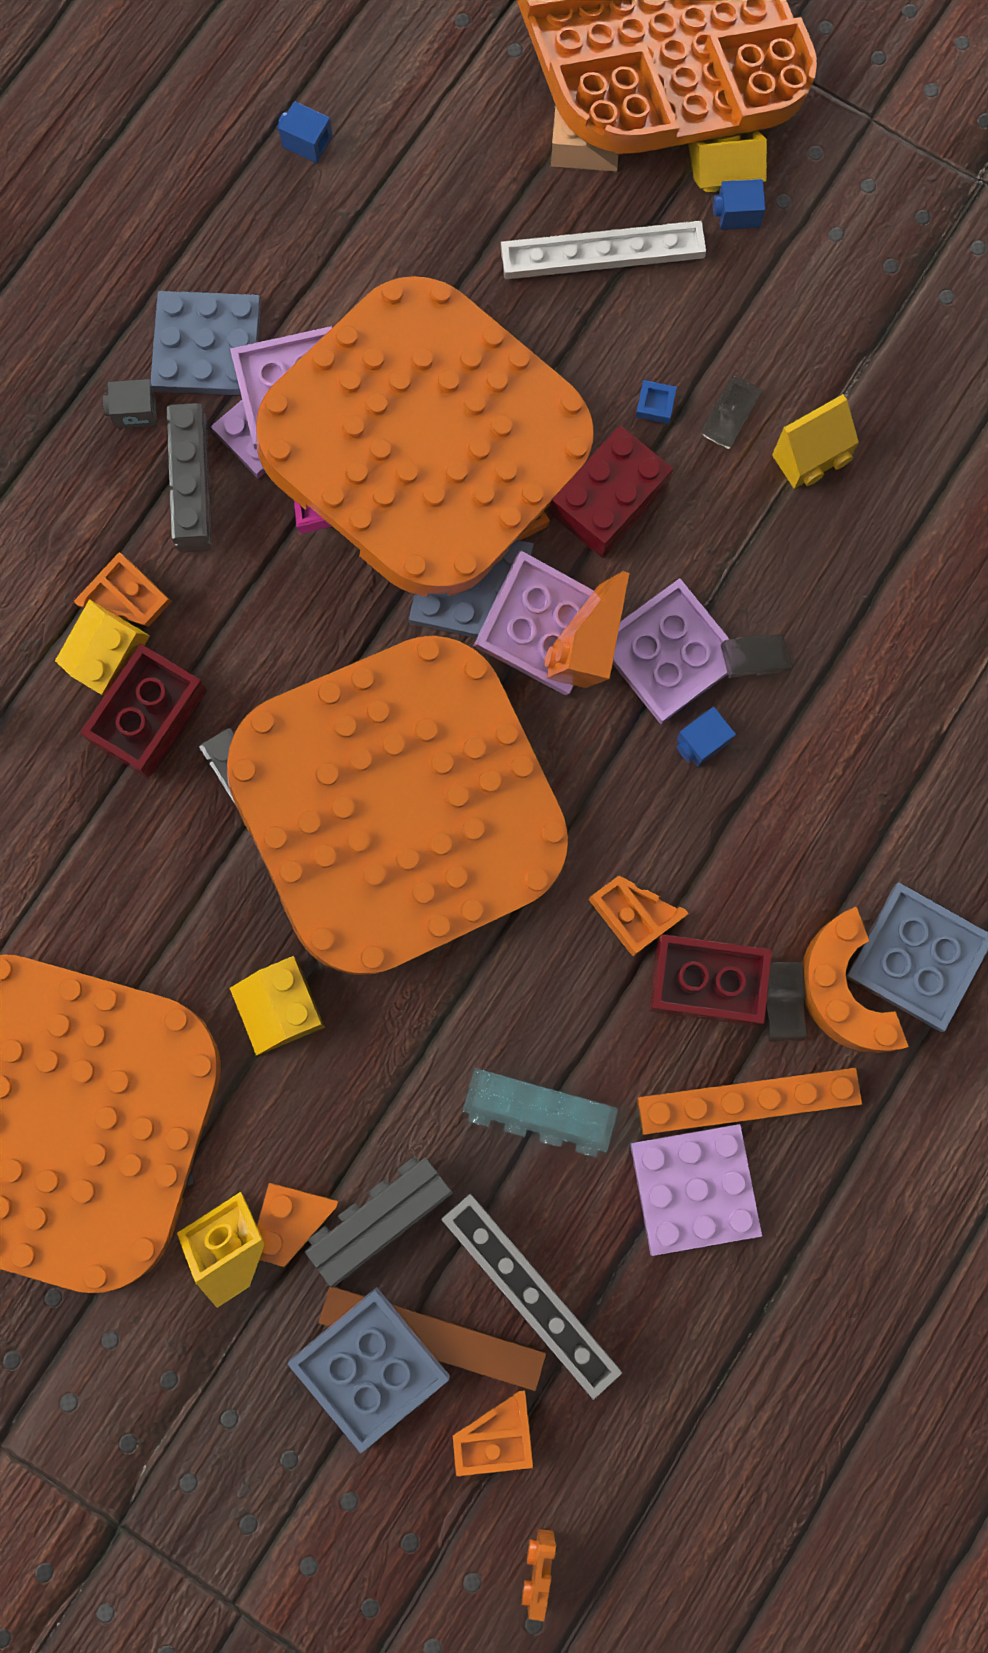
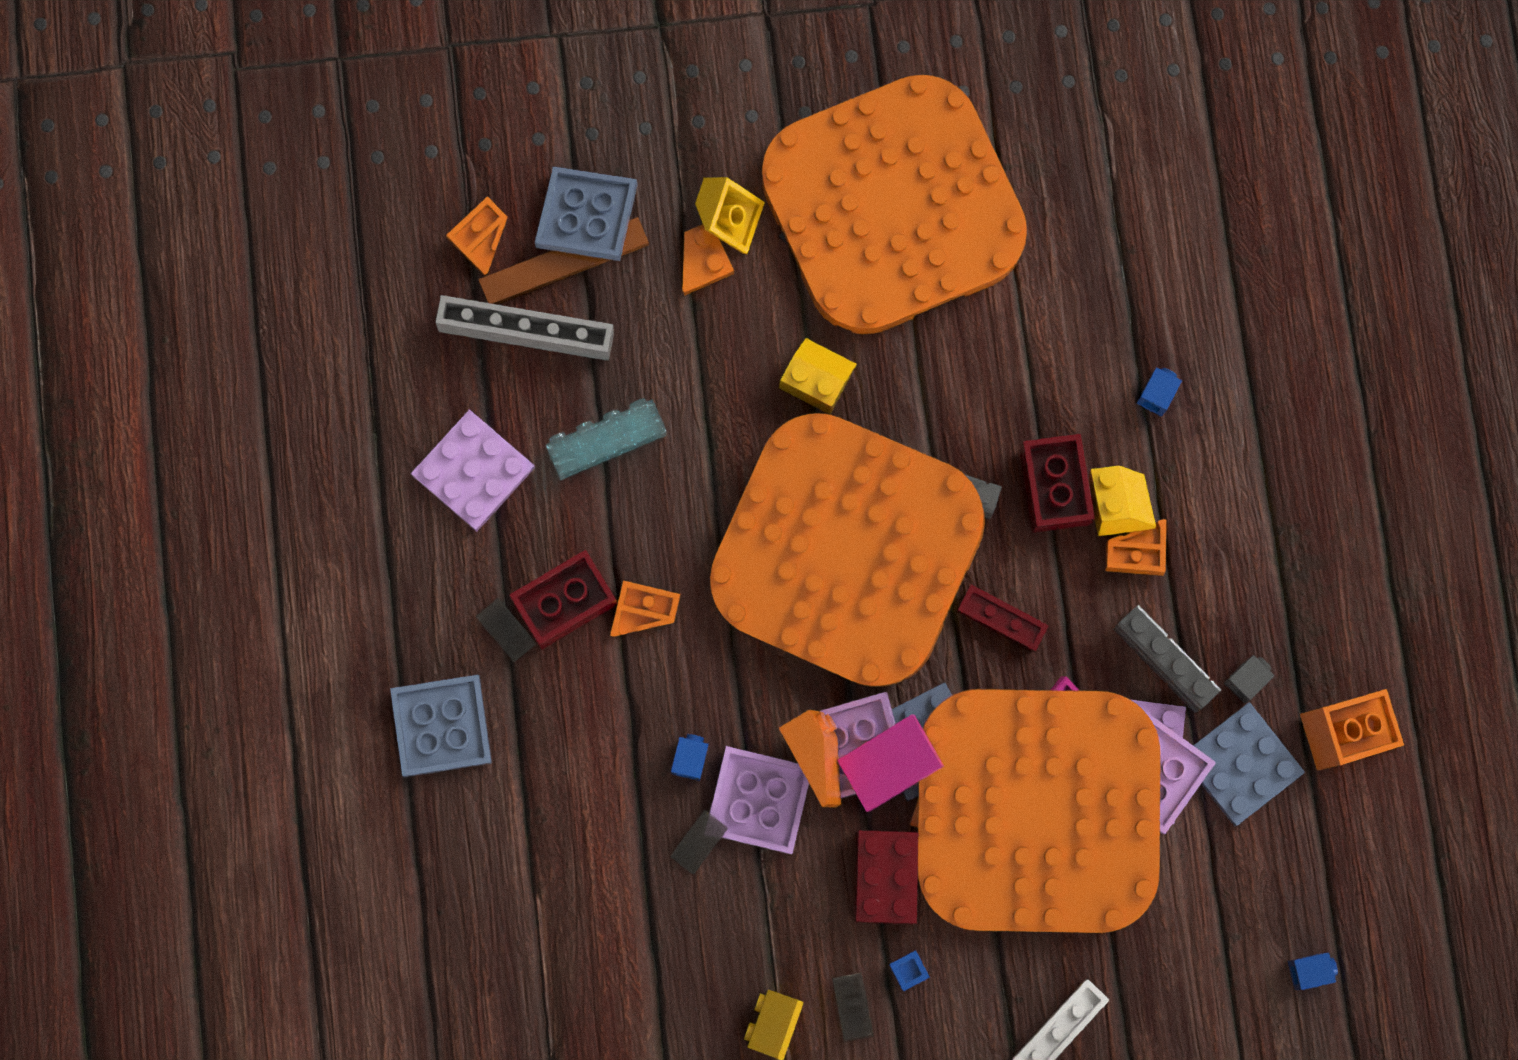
camera: 135 degrees right, 0 degrees up
(85, 291) = (1351, 730): none -> orange slope
(303, 630) = (1002, 618): none -> dark red plate
(378, 1222) = (649, 300): dark grey brick -> none
(526, 573) = (890, 763): none -> dark pink tile
(536, 1591) = (402, 191): orange wing -> none
(749, 1101) = (480, 550): orange plate -> none
(829, 997) = (476, 648): orange brick -> none

